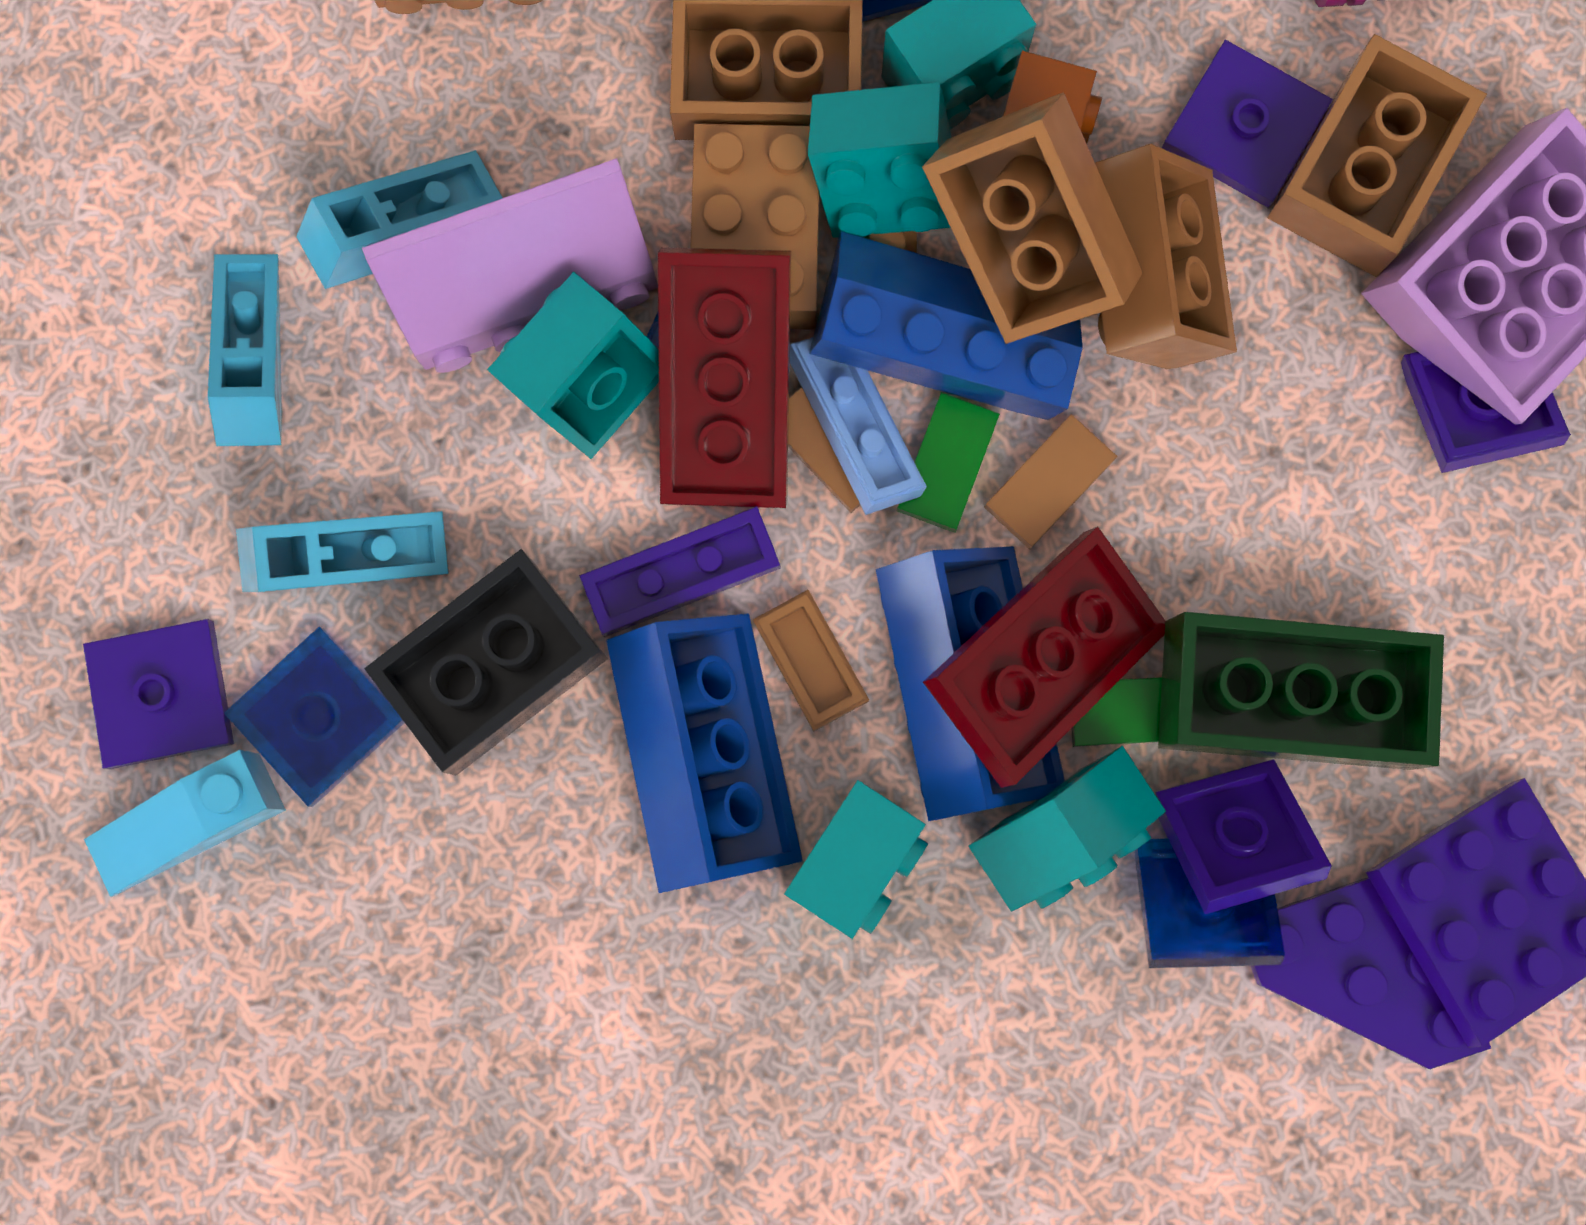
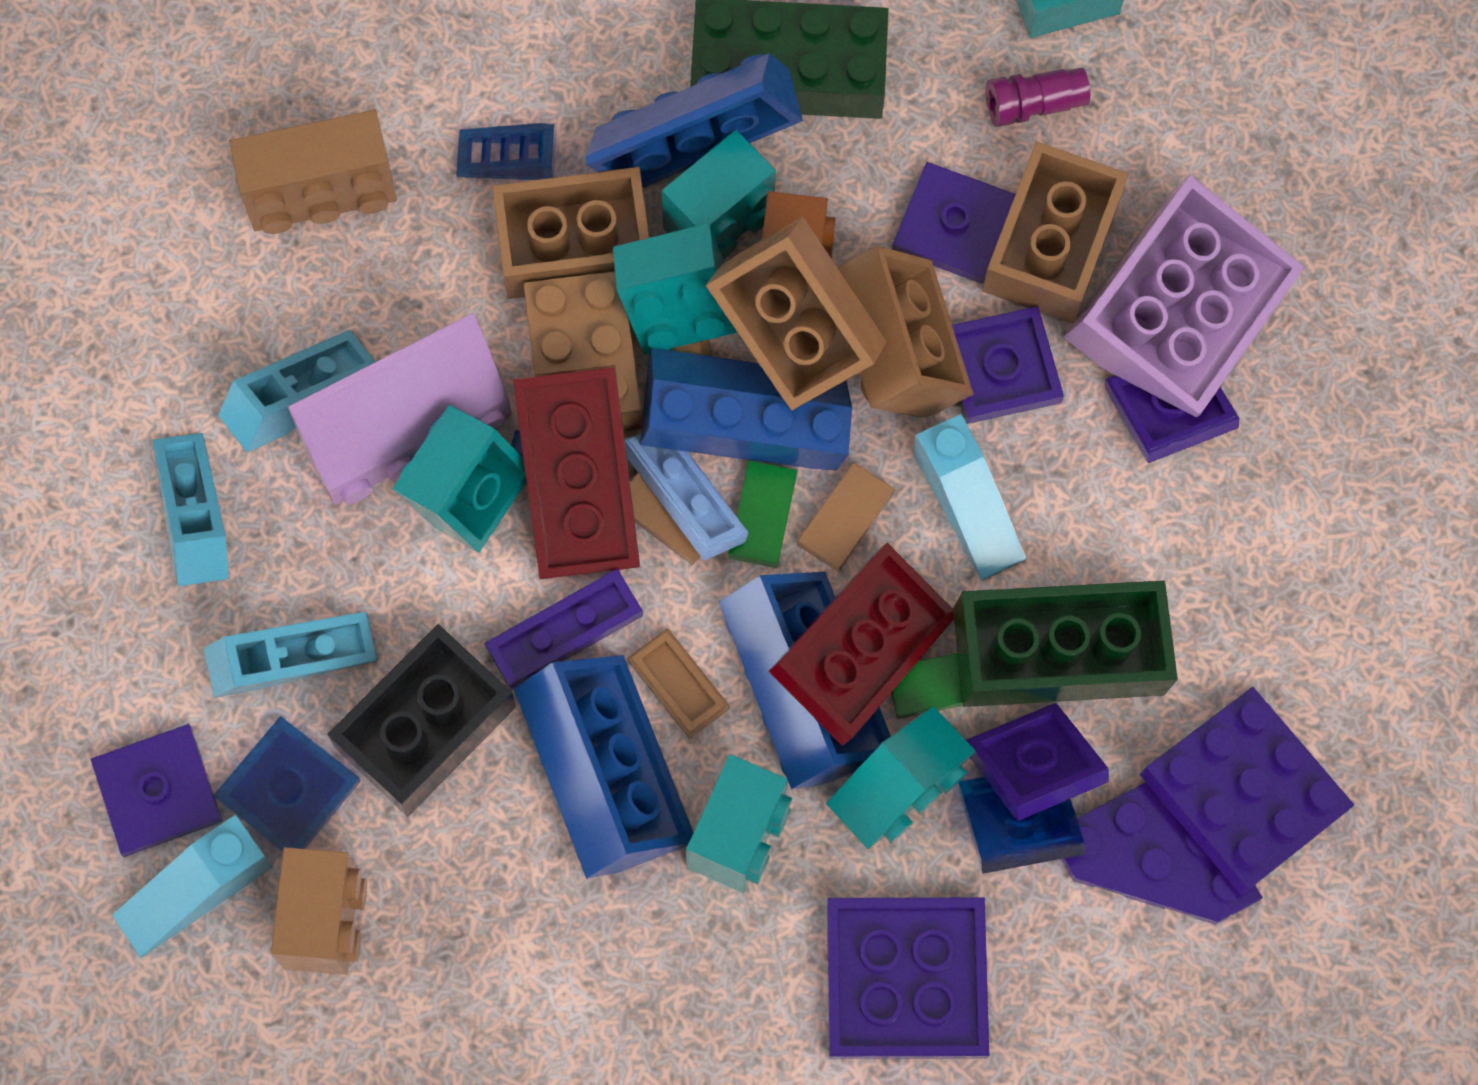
camera: 15 degrees left, 10 degrees down
(321, 888) = (317, 911): none -> medium nougat brick
(1034, 1078) = (907, 978): none -> dark purple plate
(1208, 480) = (968, 496): none -> medium azure slope
(1285, 318) = (1007, 365): none -> dark purple plate

